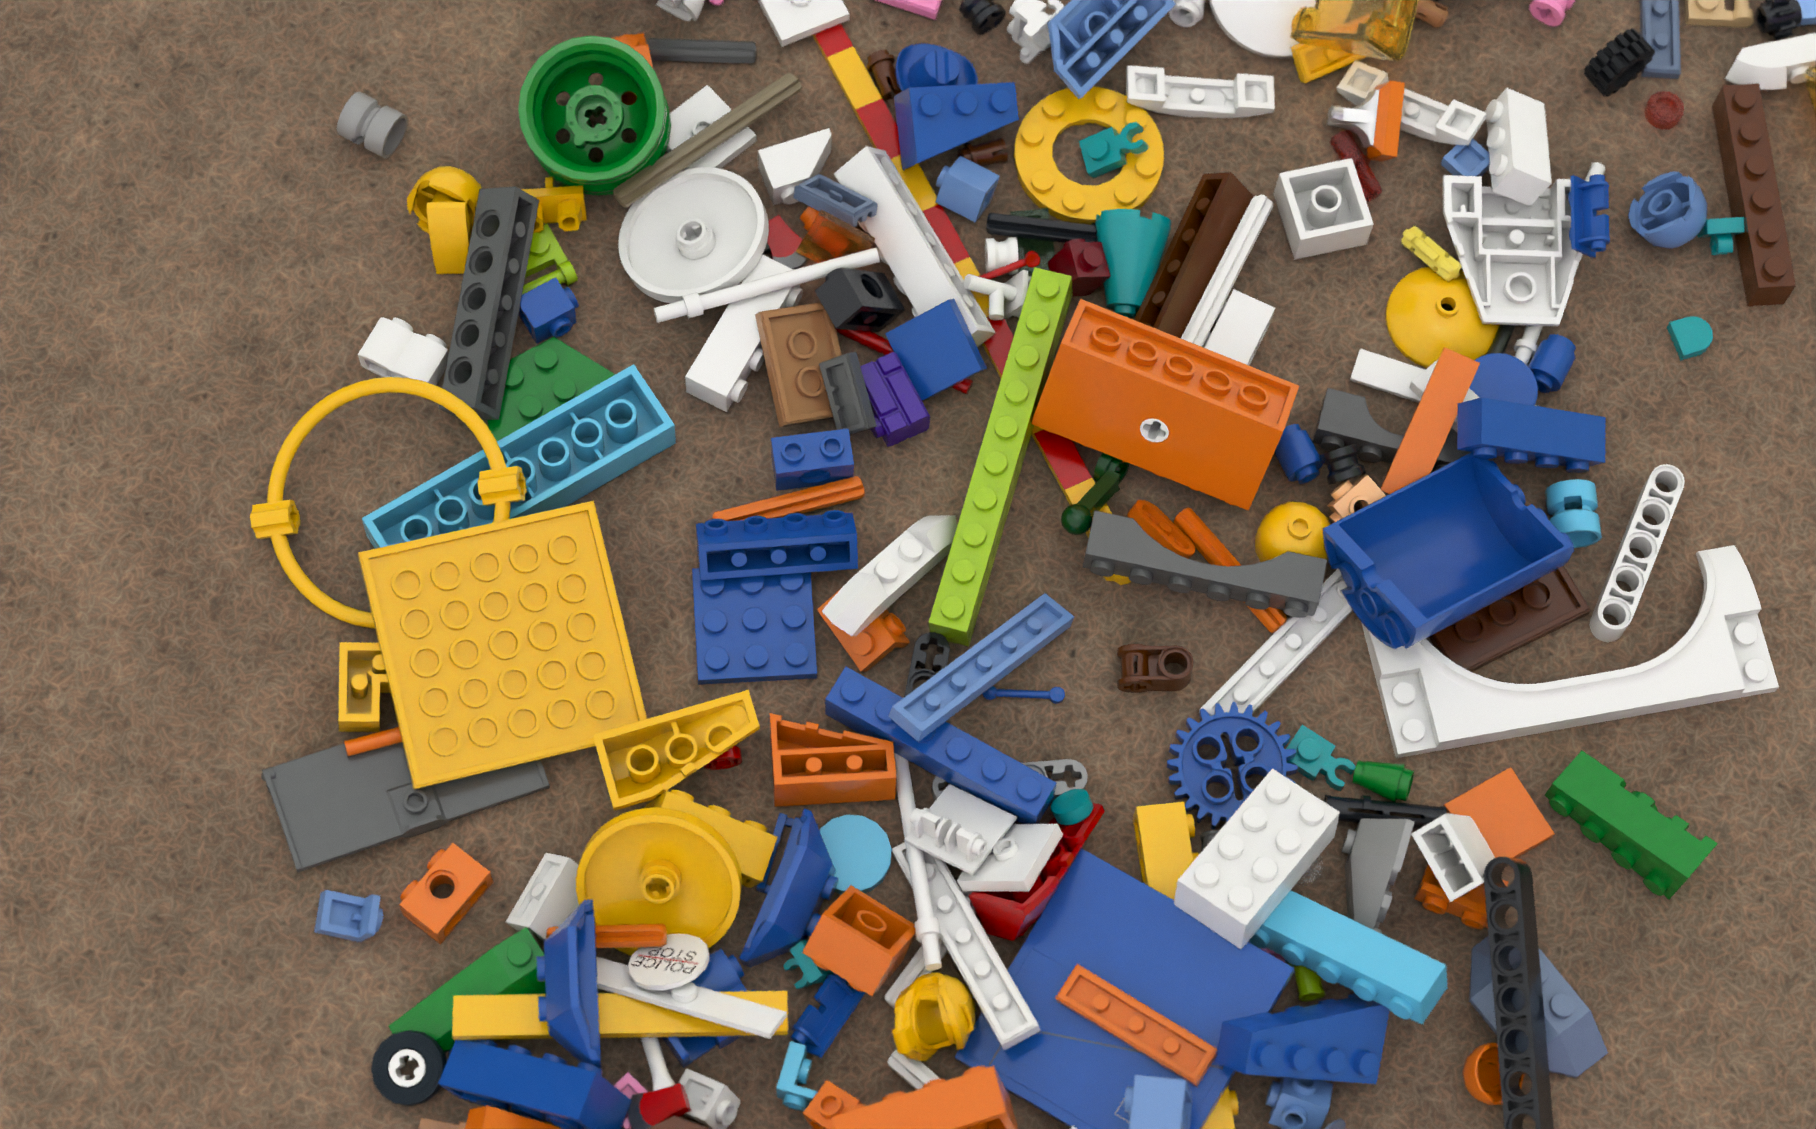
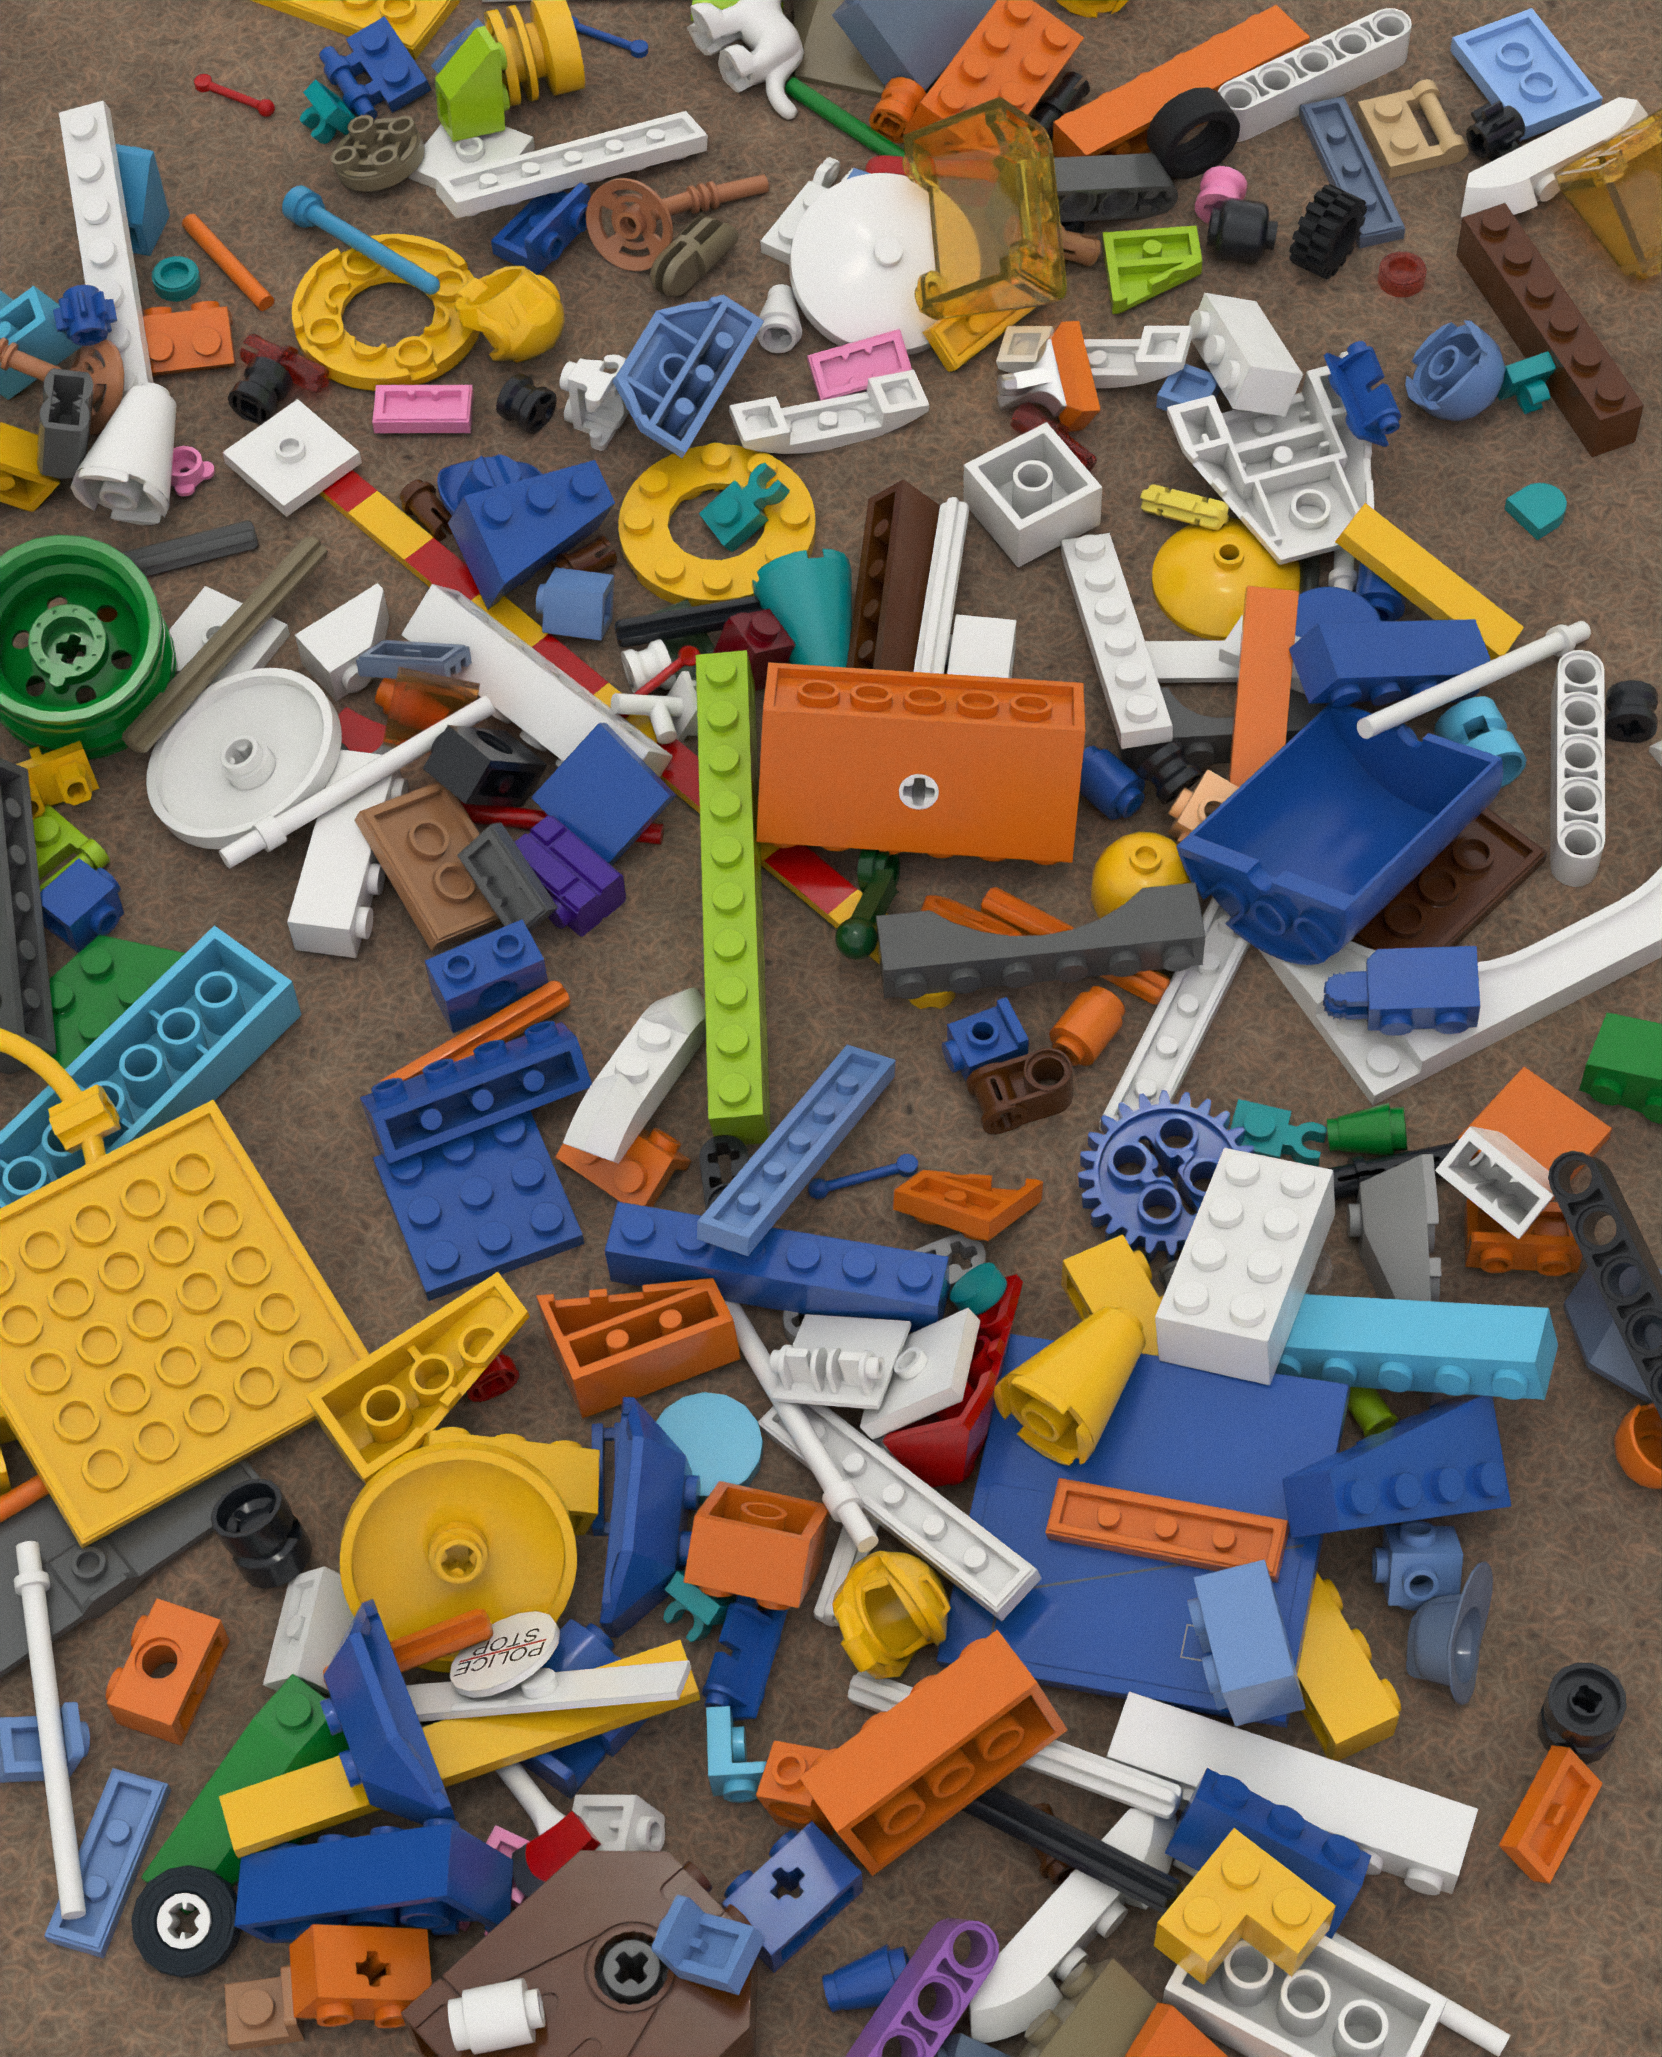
camera: 10 degrees left, 10 degrees down
(370, 1009) = (111, 1860): none -> medium blue tile
(373, 805) = (32, 1585): none -> white bar
(535, 819) = (261, 1533): none -> black wheel
(1086, 738) = (965, 1202): none -> orange wing
(1109, 904) = (1073, 1385): none -> yellow cone
(1154, 633) = (984, 1039): none -> blue brick
(1216, 636) = (1088, 1025): none -> orange brick
(1228, 58) = (848, 367): none -> bright pink plate
(1341, 346) = (1116, 641): none -> white plate
(1448, 691) = (1410, 991): none -> blue hinge
(1478, 41) = (1149, 263): none -> lime wing
(1556, 38) = (1241, 230): none -> black head
(1583, 374) = (1425, 578): none -> yellow tile
(1663, 449) = (1557, 642): none -> white bar
(1693, 522) = (1631, 711): none -> black wheel

